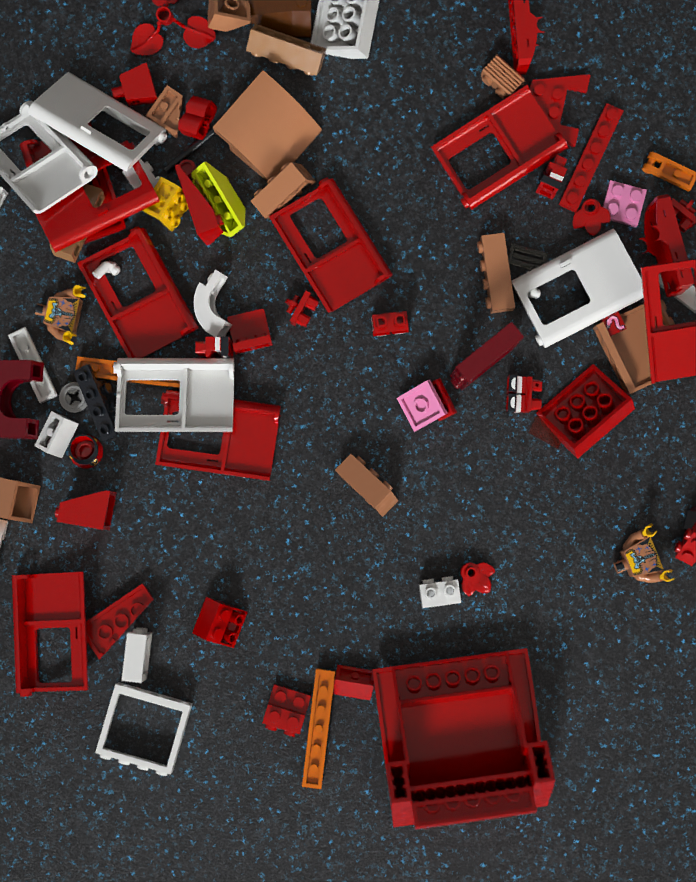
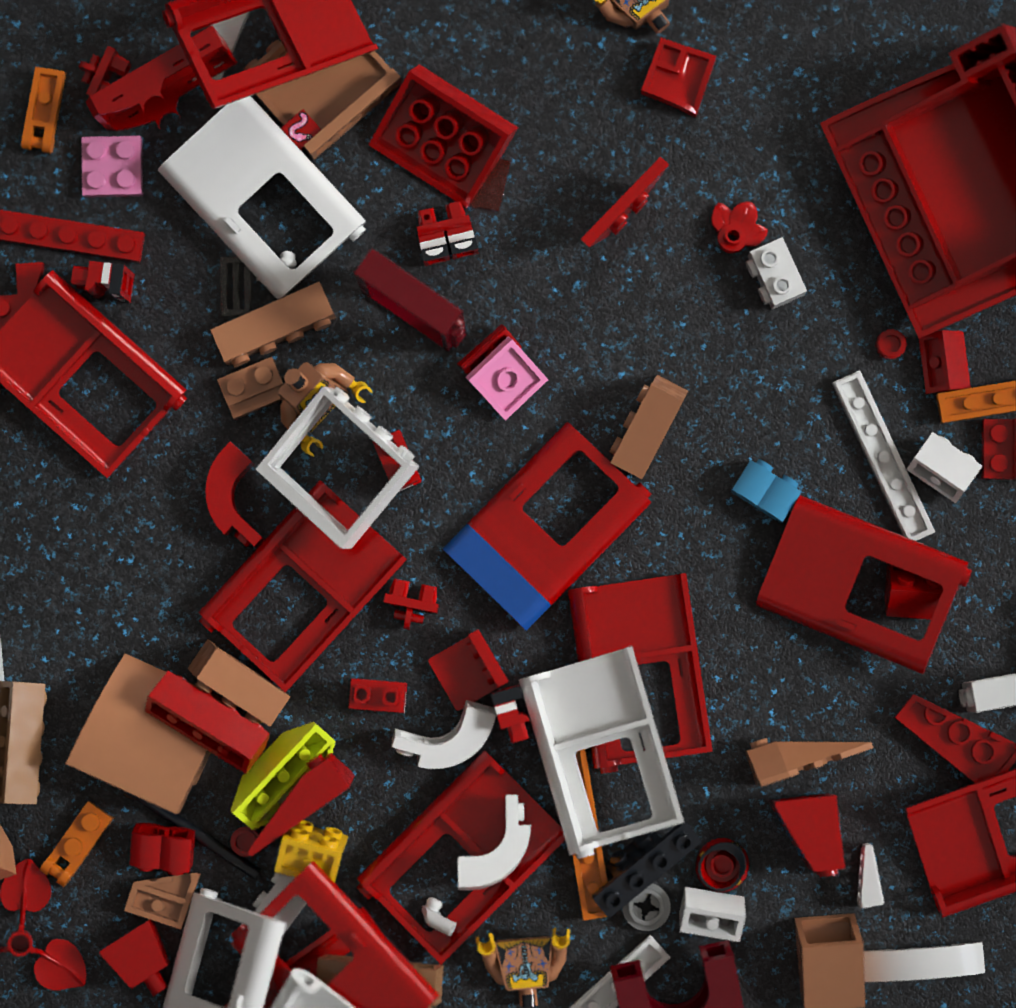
camera: 100 degrees left, 0 degrees up
(44, 536) = (869, 883): none -> white slope
(123, 305) = (490, 869): none -> white arch
(137, 504) = (785, 759): none -> nougat wedge
(216, 70) = (77, 843): none -> orange plate
(247, 563) = (820, 564): none -> red piece
(249, 271) = (378, 695): none -> red hips
(263, 162) = (207, 721): none -> red brick
(287, 661) = (944, 467): none -> white brick
(305, 546) = (766, 490): none -> dark azure brick
(305, 625) = (883, 456): none -> white tile
(309, 379) = (516, 557): none -> red piece
(375, 652) = (891, 344): none -> red tile
(382, 257) = (271, 464): none -> white window
(399, 211) = (220, 491): none -> red arch
(445, 282) = (304, 384): none -> nougat torso
(461, 250) = (251, 388): none -> nougat plate
(511, 515) = (633, 200): none -> red wing
(582, 569) = (678, 76): none -> red plate
(591, 219) = (150, 205): red plate -> none

